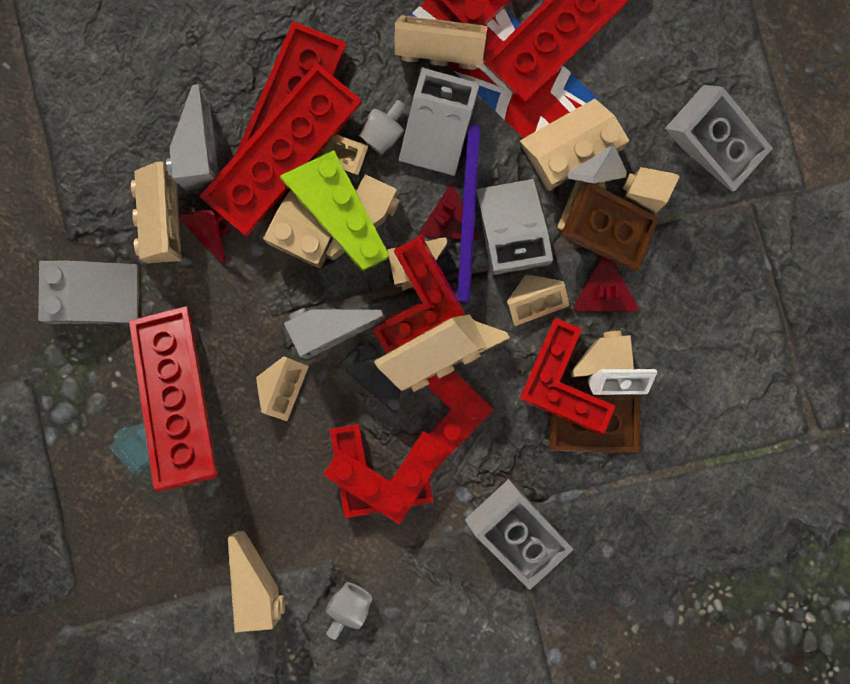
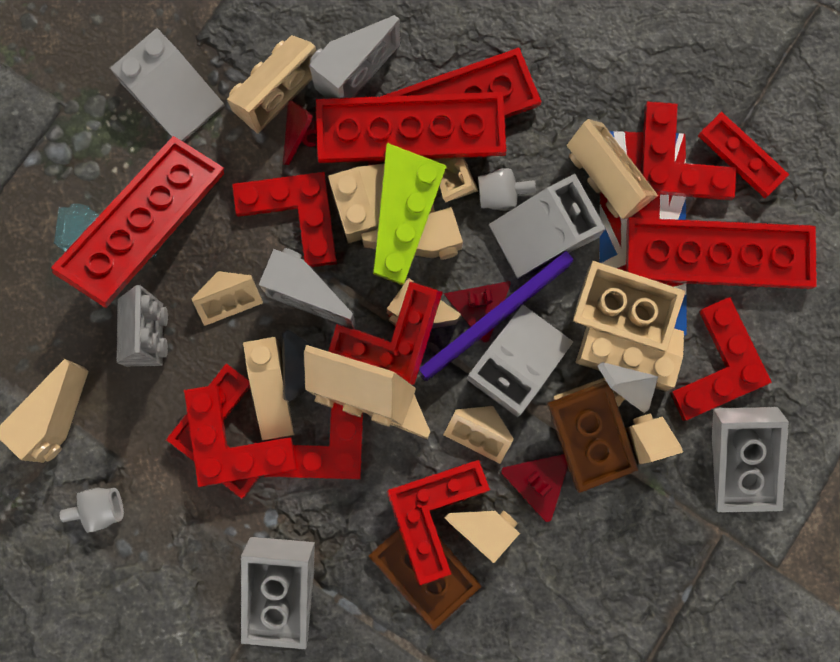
camera: 45 degrees right, 5 degrees down
(251, 468) = (141, 329): none -> light grey slope
(253, 268) = (300, 192): none -> red plate
(373, 415) = (266, 383): none -> tan slope
(545, 119) = (628, 306): none -> tan slope
(622, 381) = (476, 561): white slope -> none
(653, 80) = (743, 365): none -> red plate

